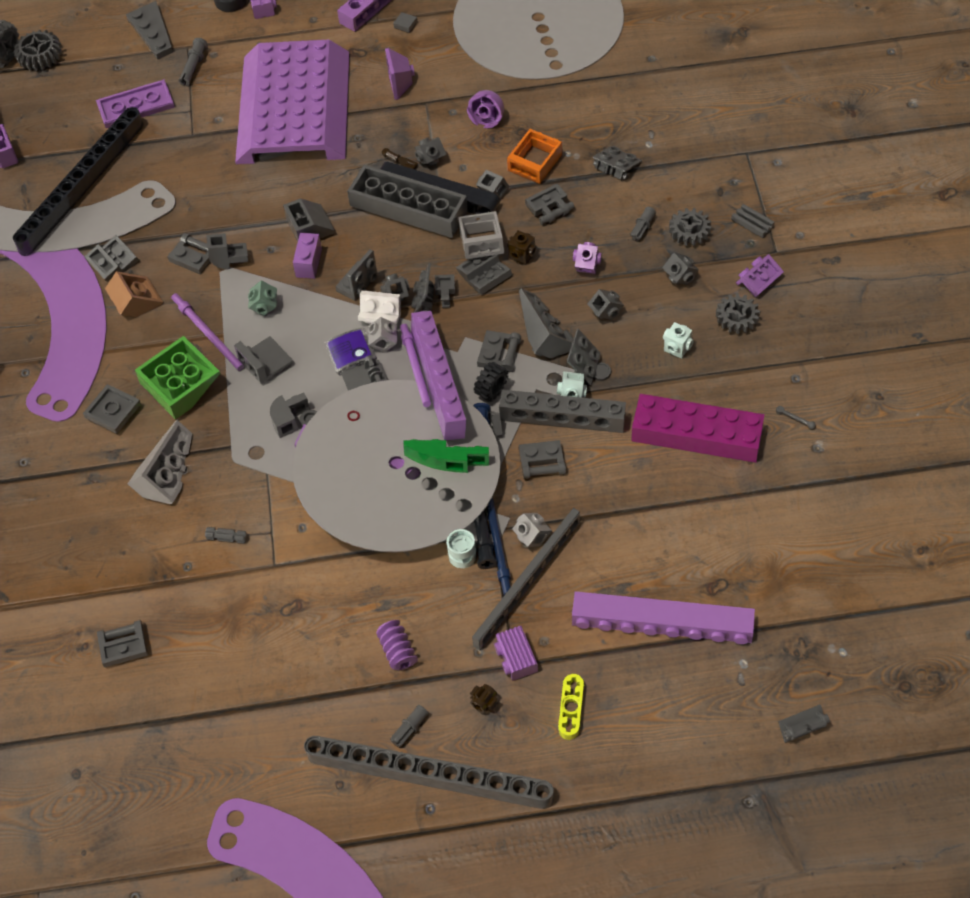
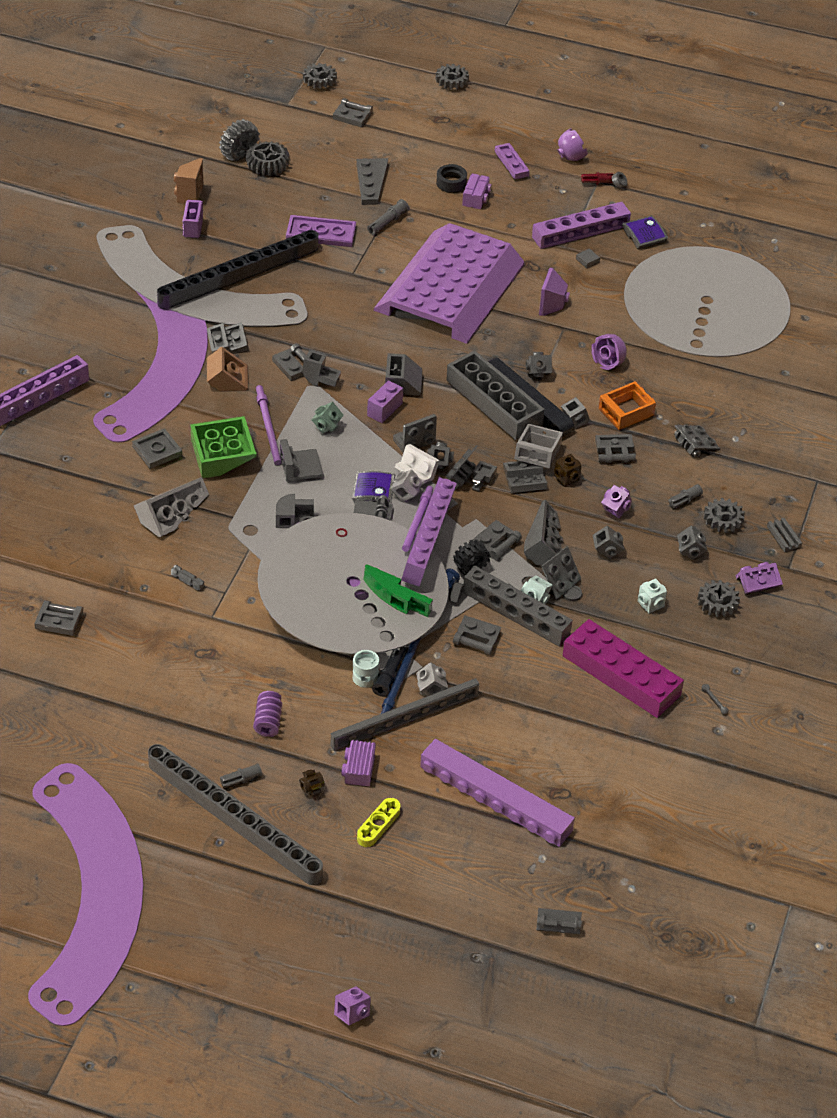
camera: 20 degrees right, 10 degrees down
(398, 159) = (510, 360): dark brown piece -> none

